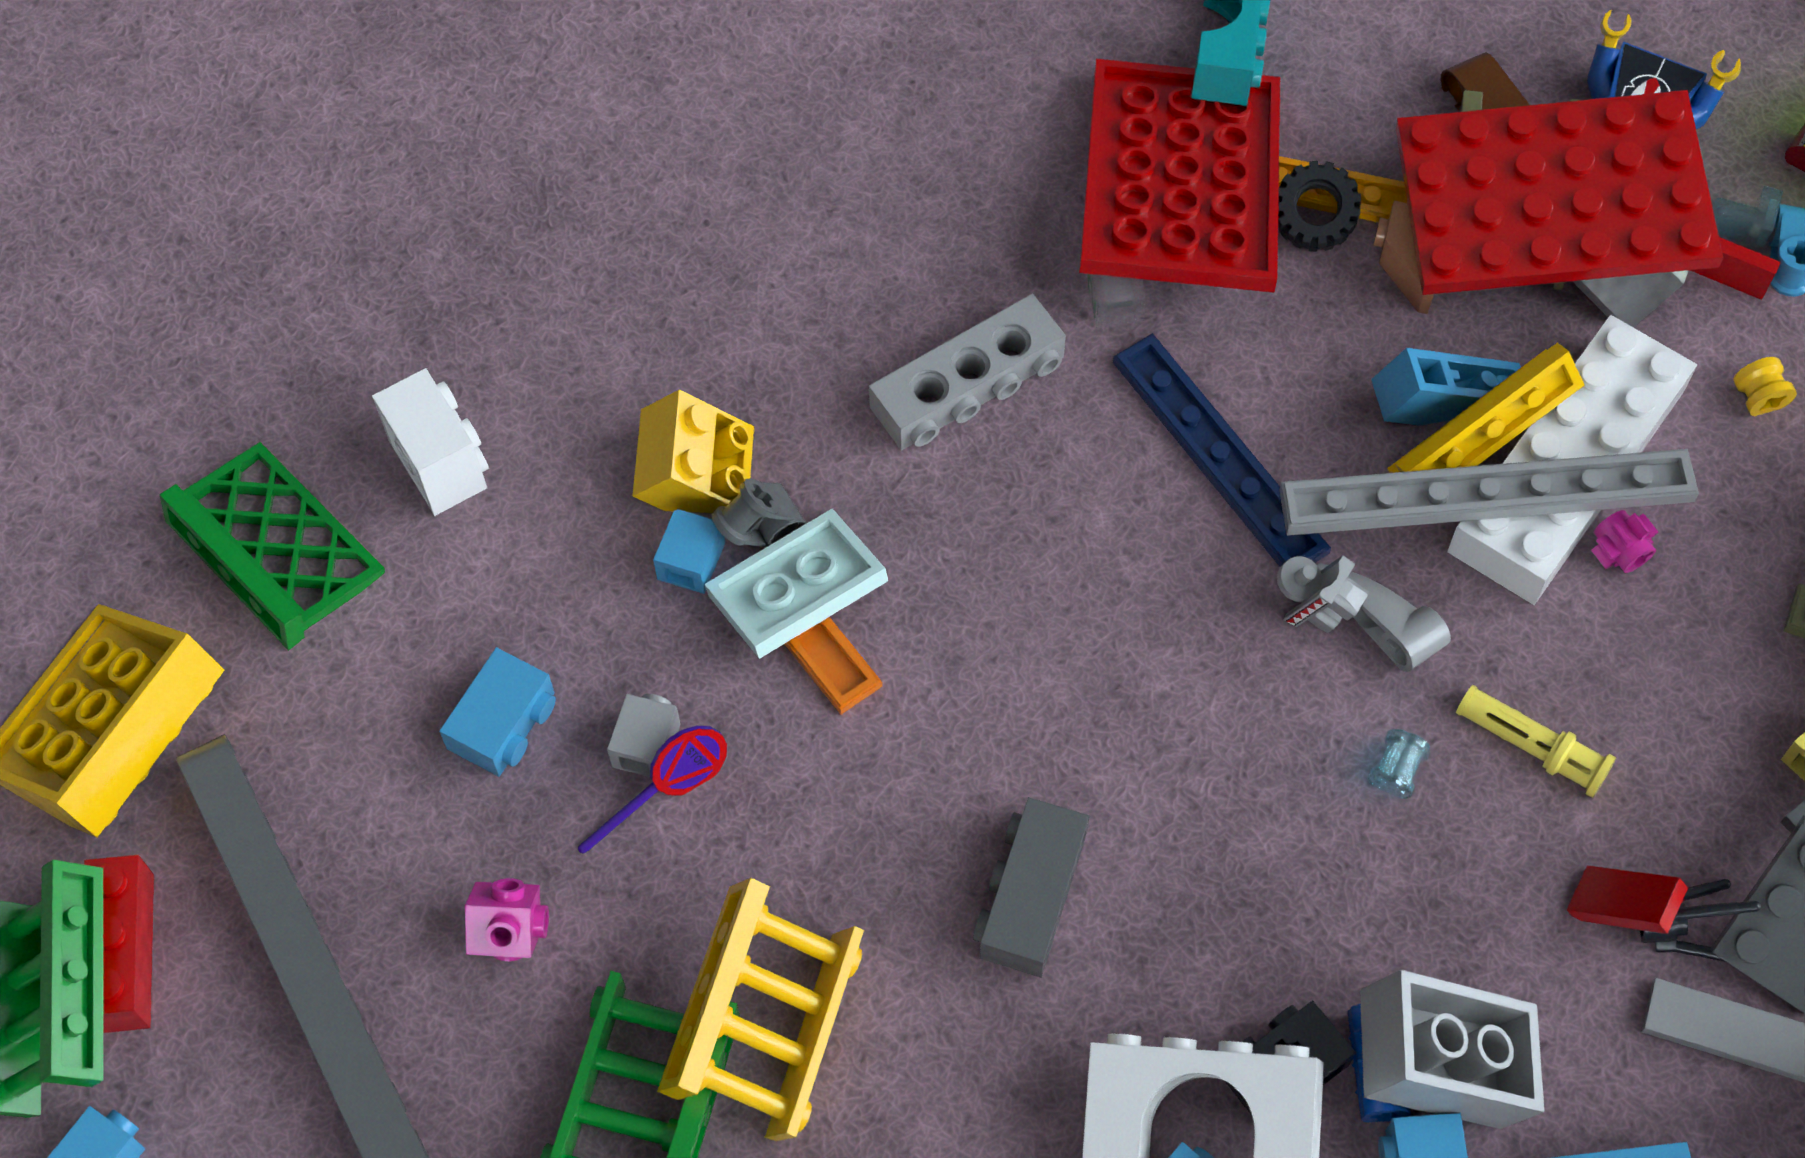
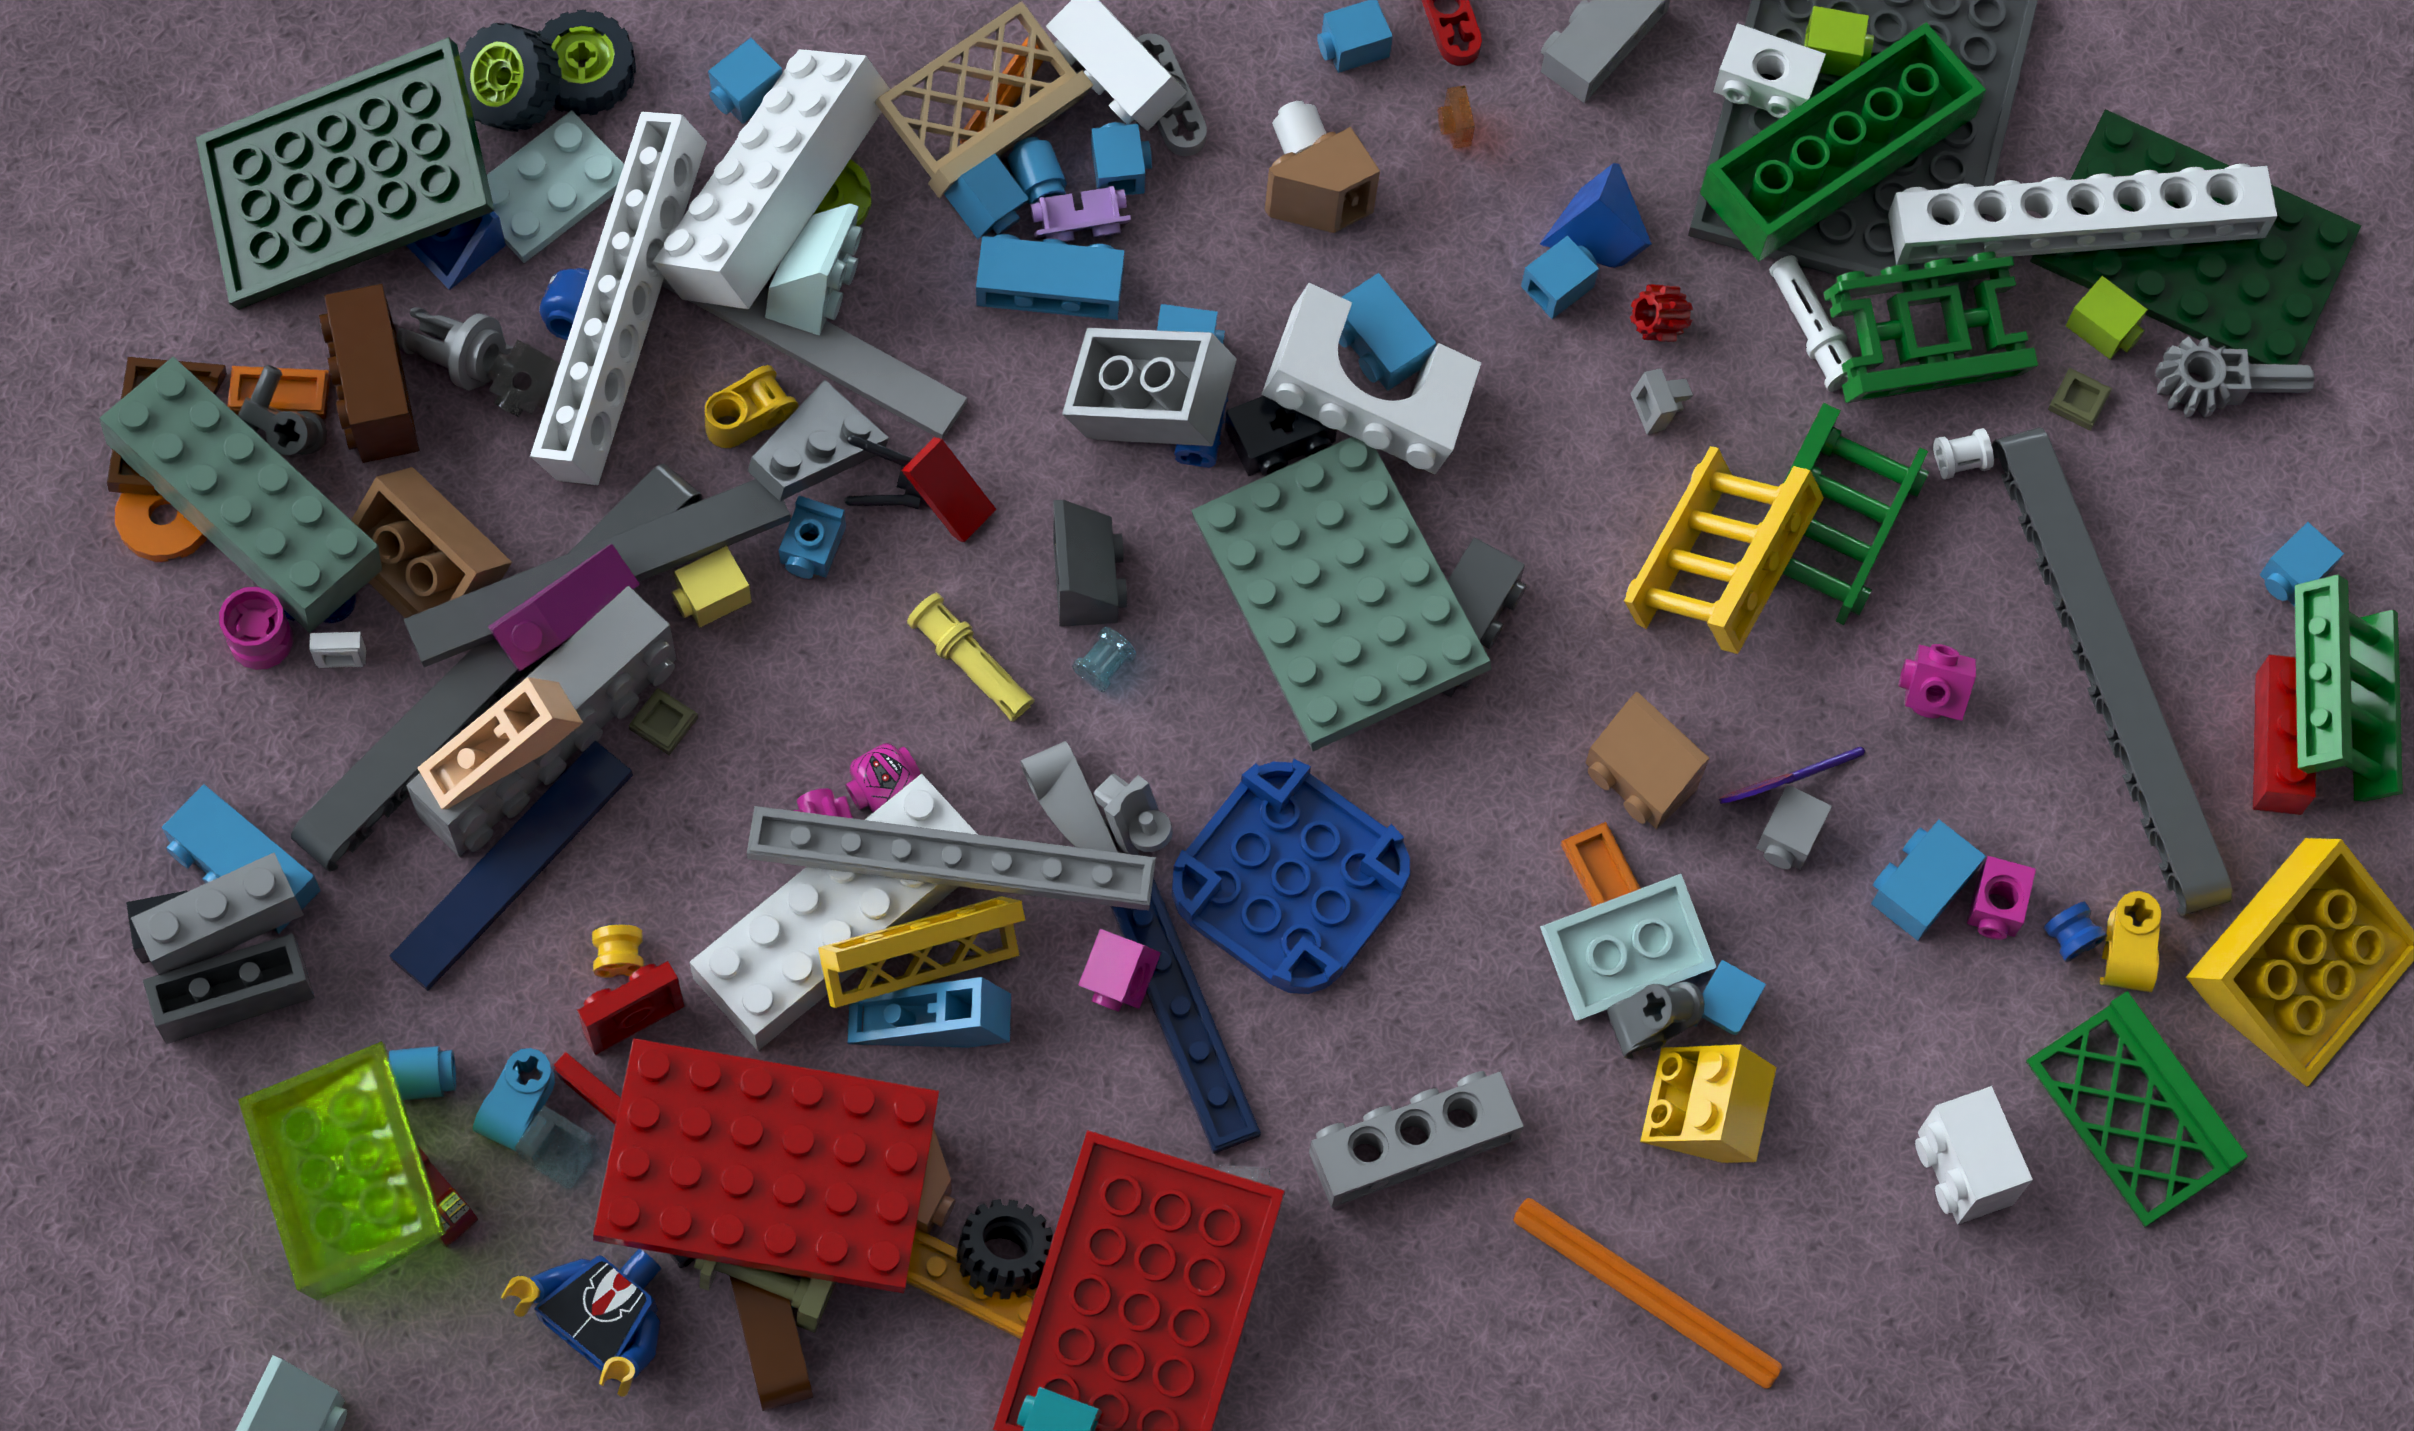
camera: 175 degrees left, 5 degrees up
(281, 694) = (2129, 949): none -> yellow piece
(340, 693) = (2075, 931): none -> blue wheel
(419, 729) = (2008, 880): none -> dark pink brick
(728, 298) = (1647, 1293): none -> orange axle
(808, 760) = (1646, 762): none -> medium nougat slope
(1146, 592) = (1290, 877): none -> blue tile
(1174, 878) = (1340, 591): none -> sand green plate
(1288, 452) = (1118, 971): none -> dark pink brick
(1454, 843) = (1086, 566): none -> dark grey slope
(1578, 596) = (880, 775): none -> dark pink head
(1735, 320) = (620, 1013): none -> red plate
(1738, 836) = (816, 556): none -> dark azure brick

